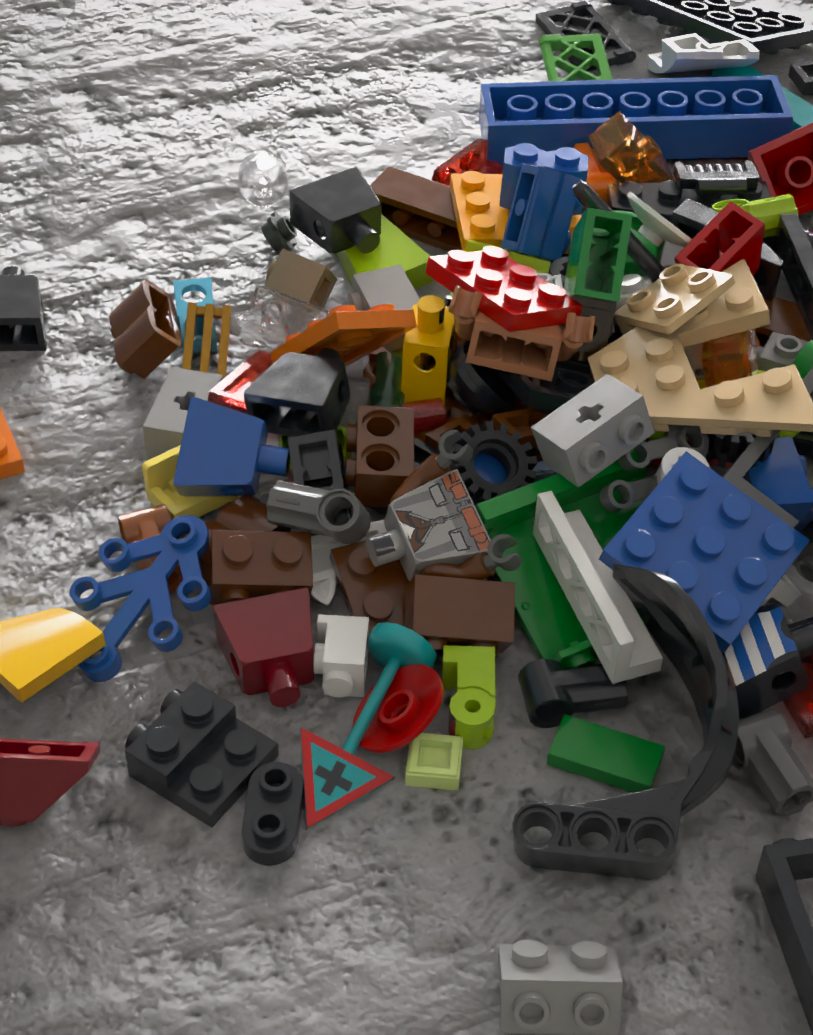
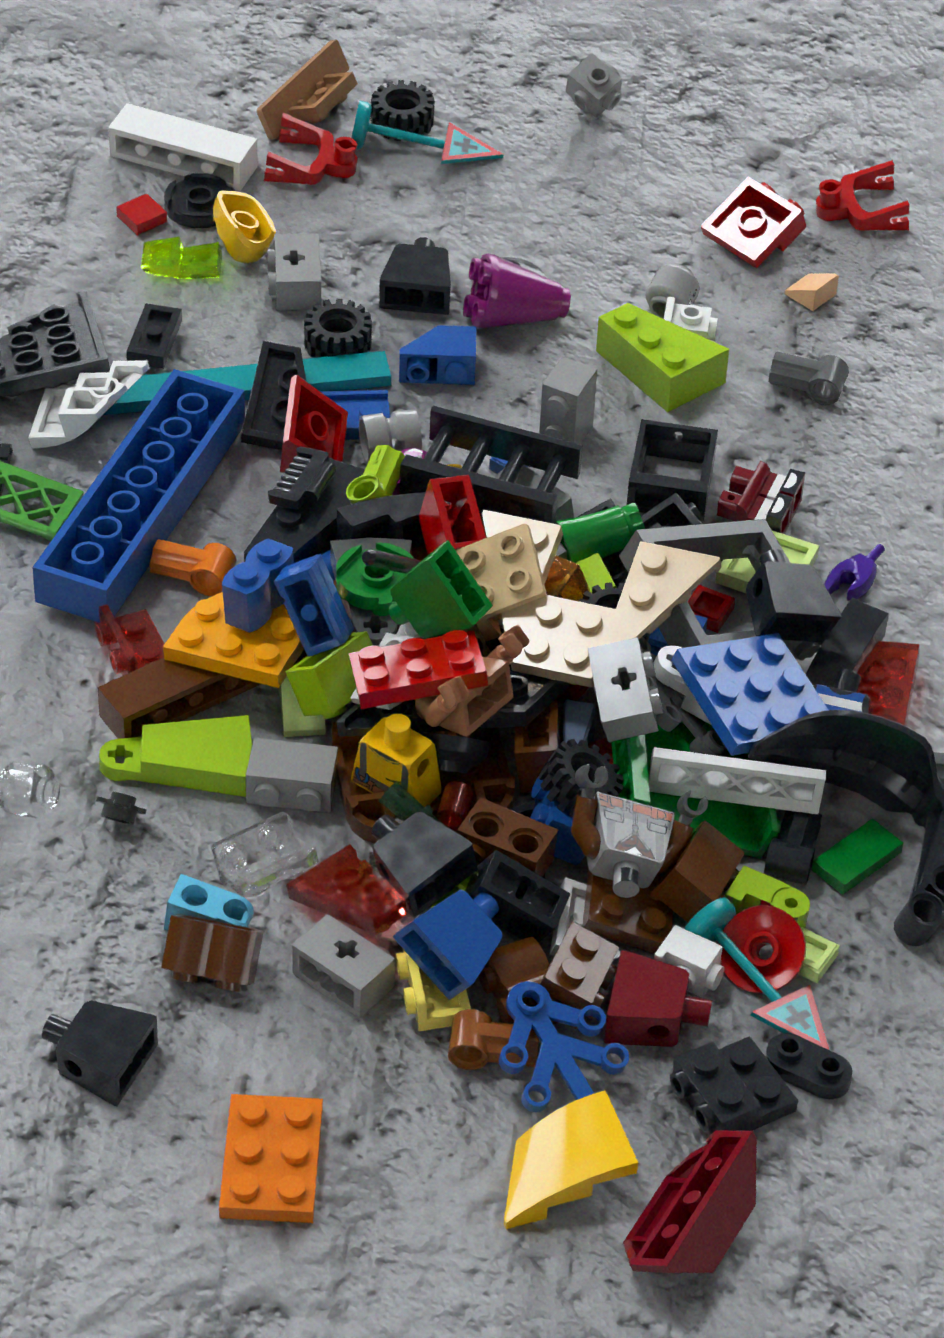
camera: 65 degrees left, 0 degrees up
(207, 312) = (270, 911): pearl gold tile -> none
(300, 278) = (218, 817): dark tan brick -> none
(315, 511) = (566, 902): dark grey piece -> none
(338, 212) = (162, 745): black torso -> none
(350, 332) = (363, 807): orange plate -> none
(629, 153) = (216, 519): clear orange brick -> none
(655, 226) = (400, 541): white dish -> none

